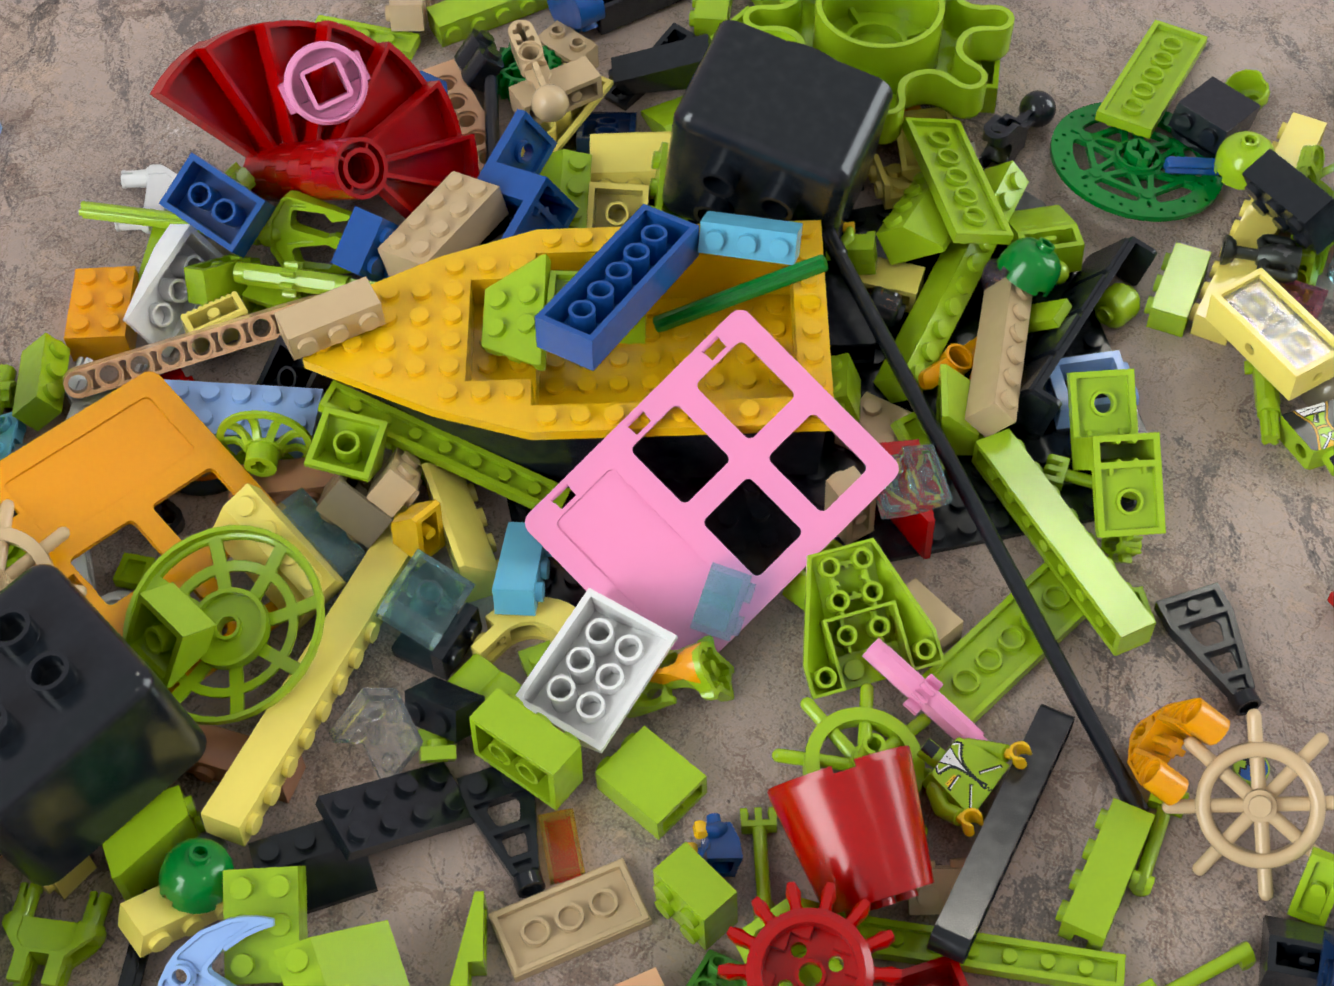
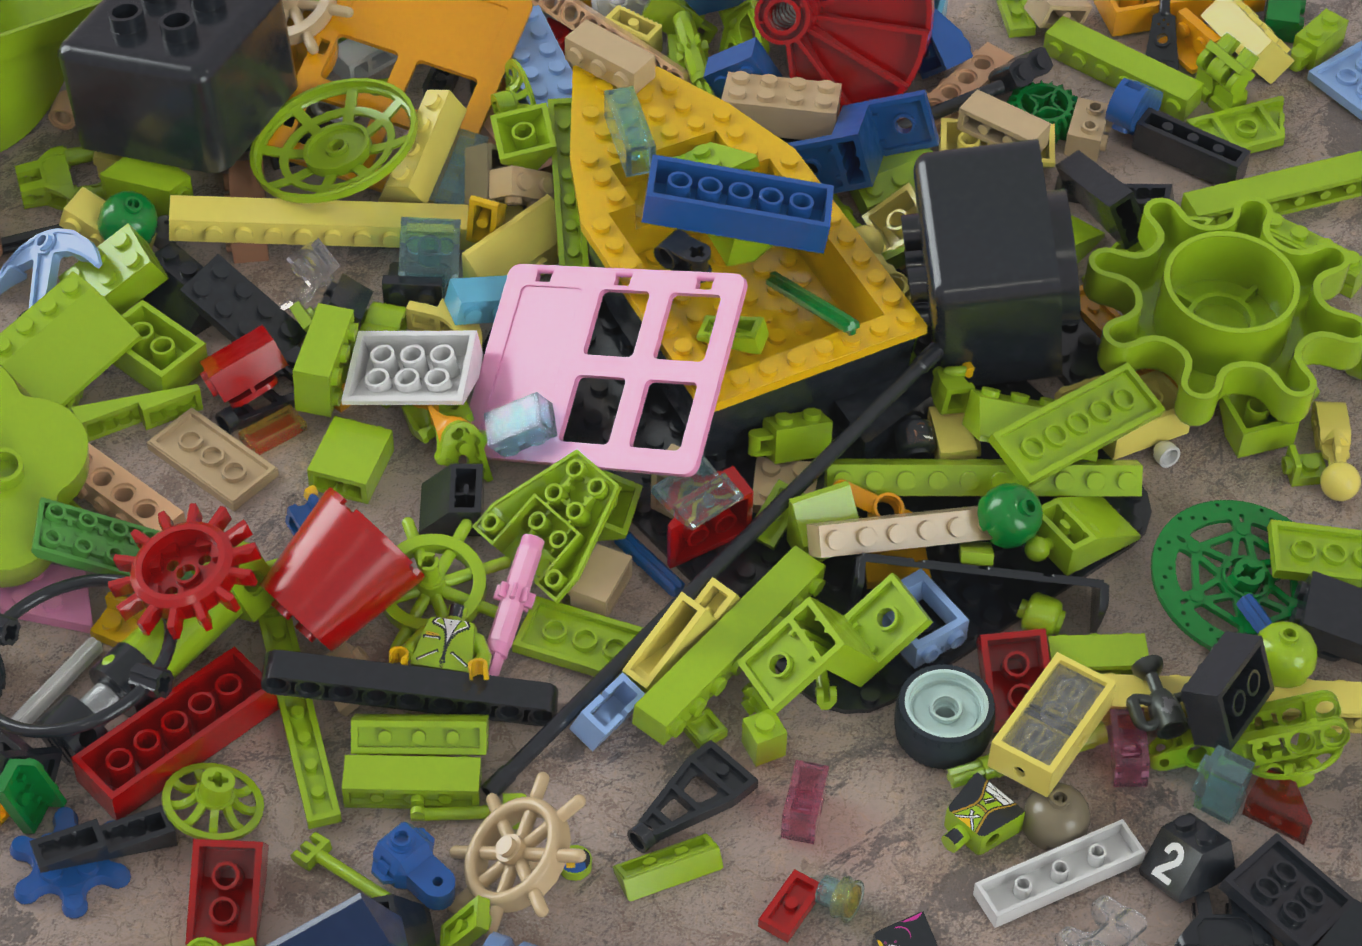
camera: 60 degrees right, 5 degrees down
(169, 632) = (306, 109): lime slope -> none
(409, 902) = (166, 353): none -> lime brick
(449, 338) = (629, 130): none -> clear light blue brick
(485, 832) = (244, 368): none -> red brick
(549, 100) = (1010, 85): tan beam -> none
(641, 360) = (683, 253): none -> black piece
(695, 896) = (262, 503): lime brick -> none
(750, 237) = (853, 273): medium azure brick -> none
(750, 370) = (749, 335): none -> lime slope
(761, 706) = (451, 497): none -> black slope
(929, 568) = (651, 564): none -> blue axle
(1008, 134) = (1194, 465): black piece -> none
(1027, 76) = (1302, 468): none -> lime bracket
(1042, 570) = (678, 632): none -> light yellow slope
(1055, 844) = (420, 734): none -> lime brick
(1058, 58) = (1333, 437): none -> light yellow beam
(1088, 656) = (611, 710): none -> light blue piece
(1160, 739) = (517, 774): light orange connector -> none
(1170, 558) = (764, 737): none -> lime brick
(1177, 350) = (1011, 666): none -> red slope
(1205, 415) = (944, 716): none -> wheel
(1222, 907) = (407, 862): none -> blue piece
(1262, 554) = (804, 802): none -> clear pink brick
(1279, 694) = (668, 867): none -> lime slope

